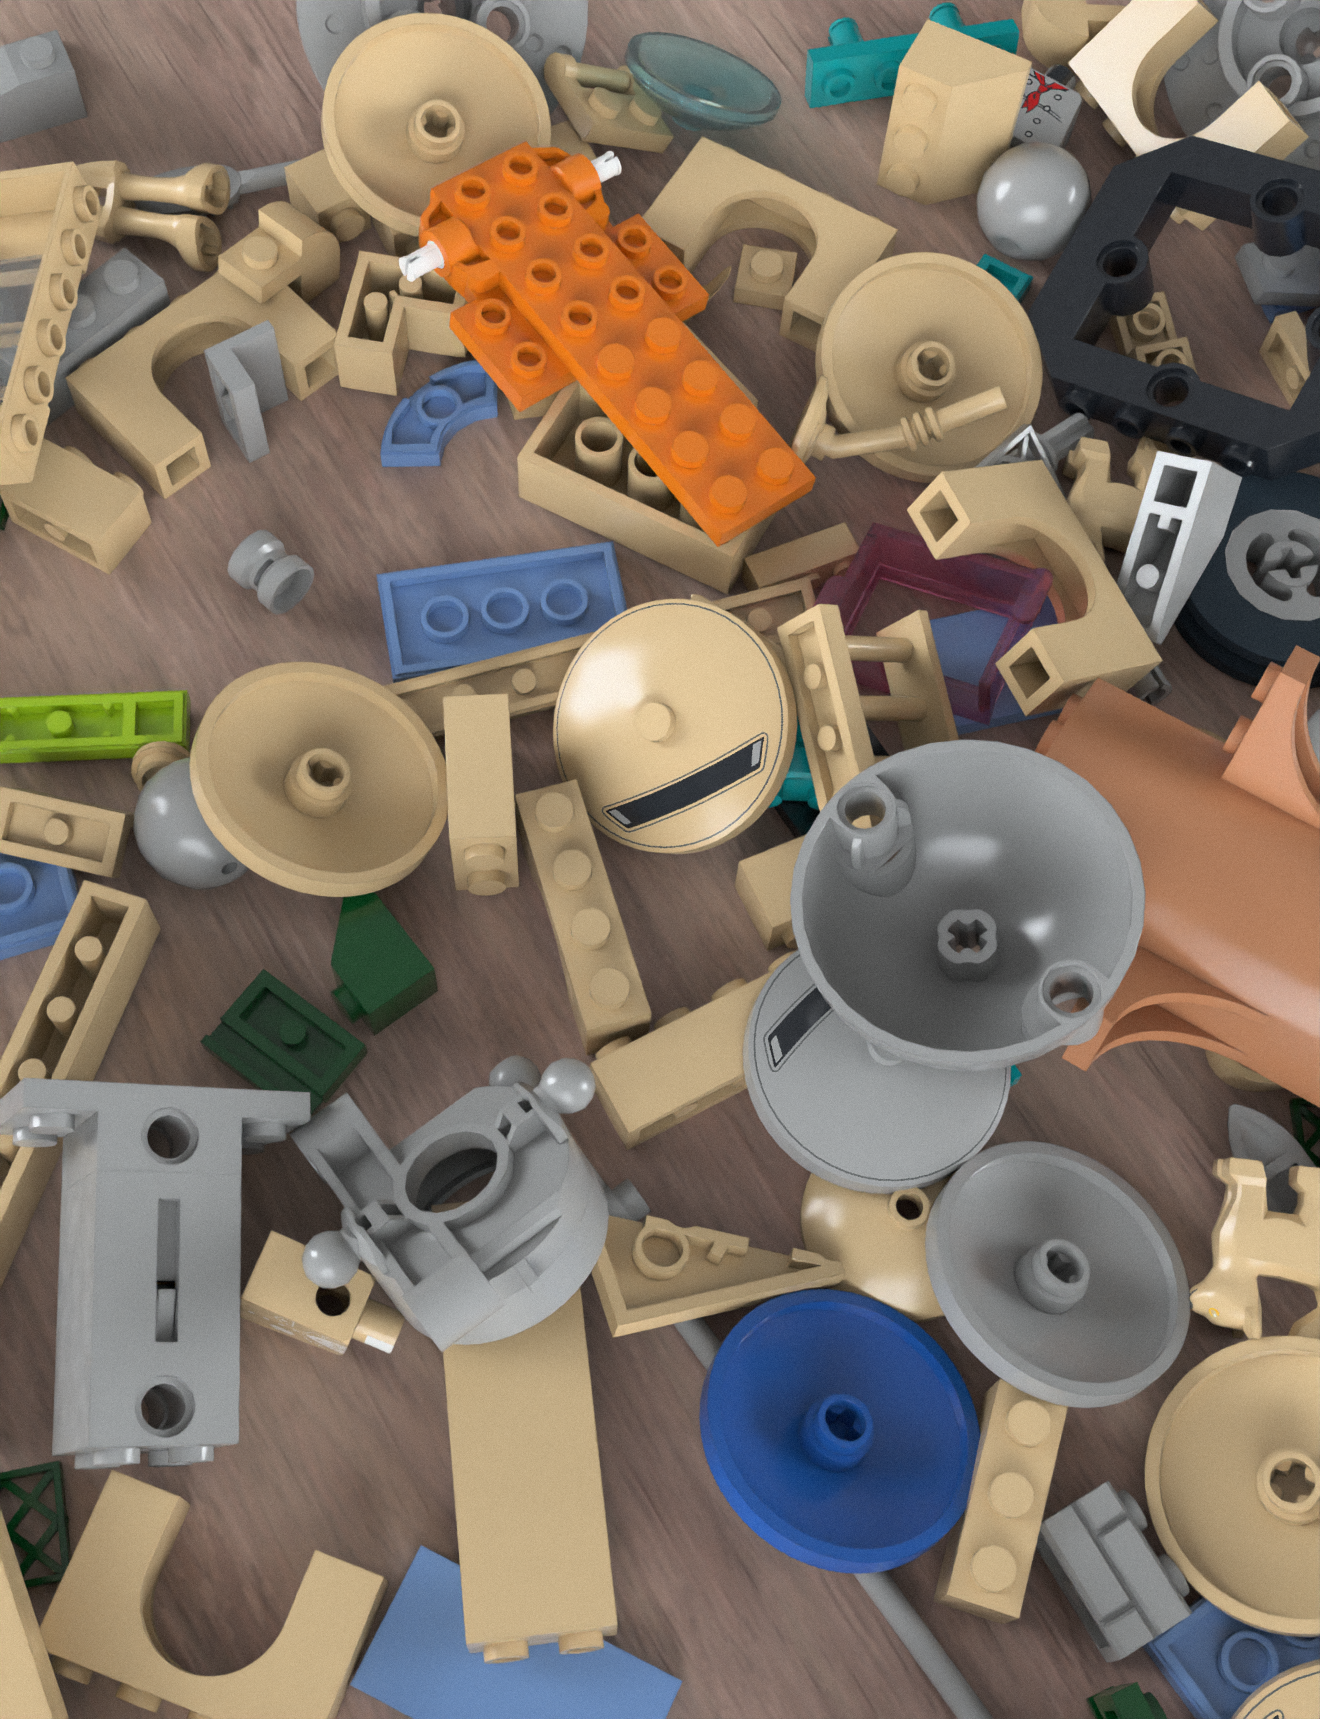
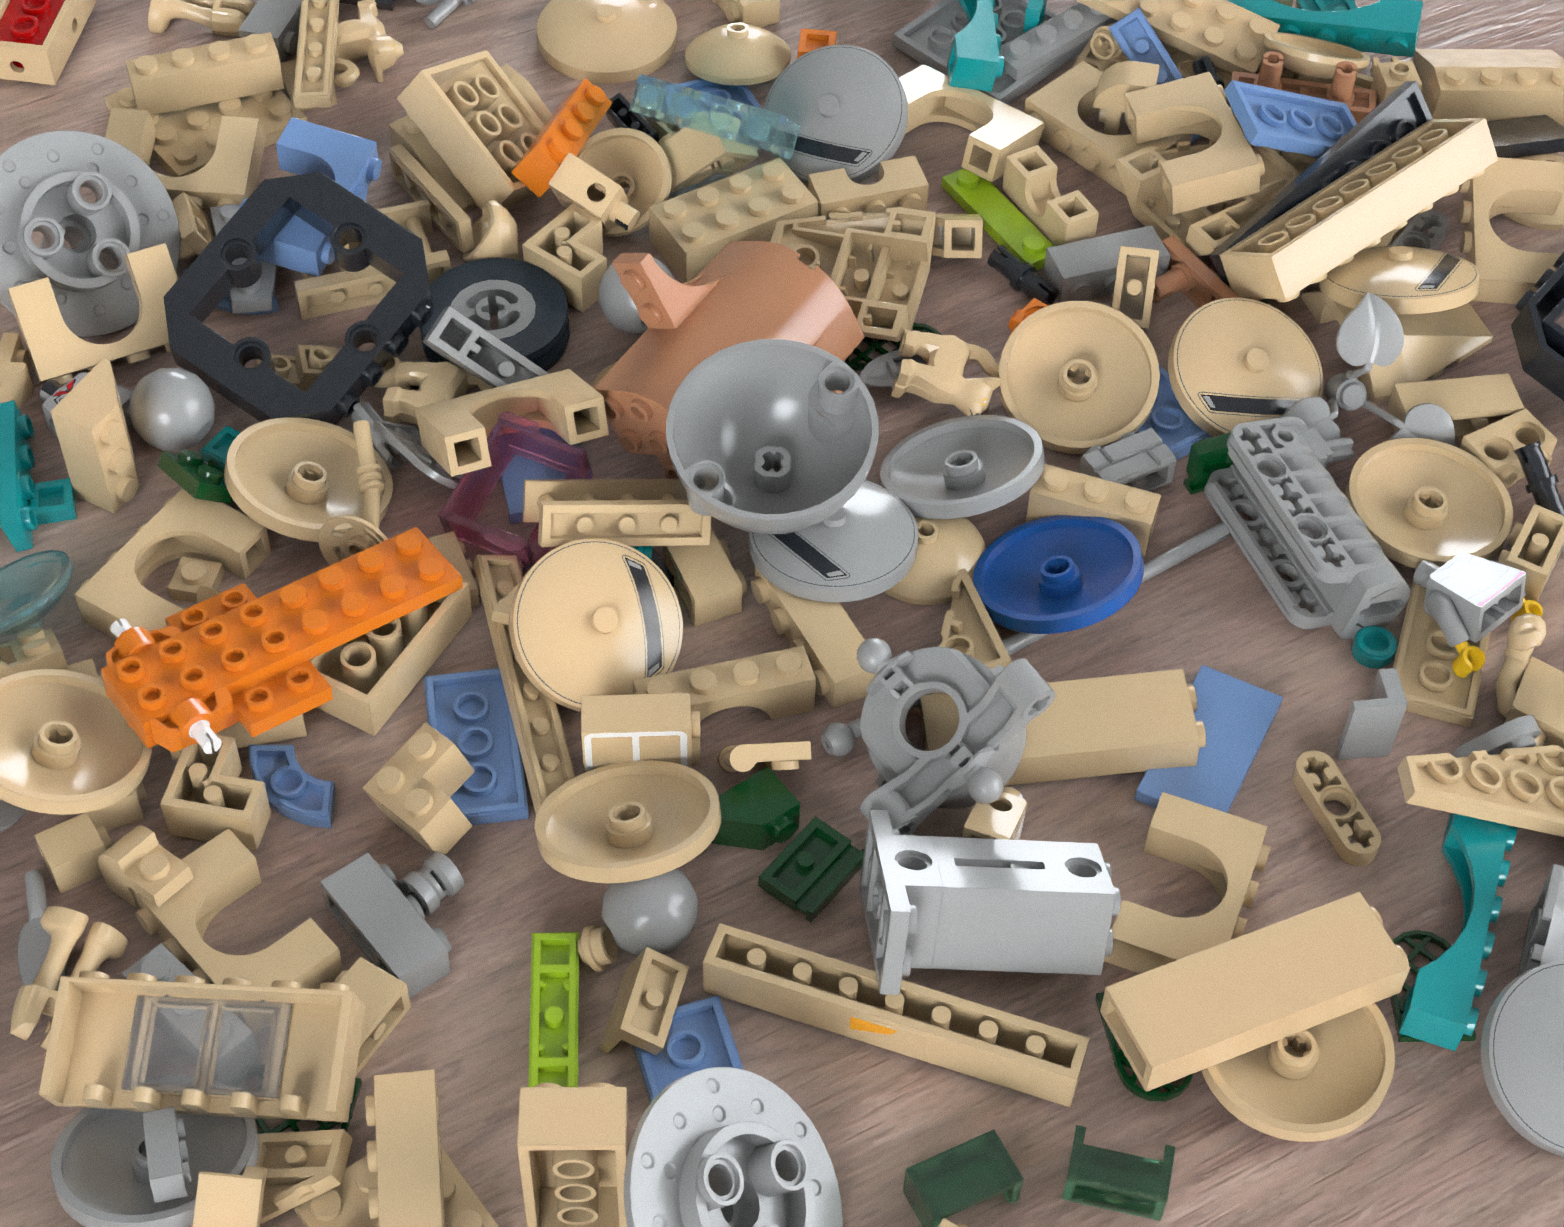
camera: 85 degrees left, 15 degrees down
(198, 526) = (387, 923): none -> light grey brick
(246, 383) = (279, 890): light grey panel -> none
(392, 533) = (418, 786): none -> tan brick
(452, 982) = (775, 755): none -> tan plate
(871, 114) = (54, 501): none -> teal tile
(919, 228) = (195, 476): none -> dark green plate

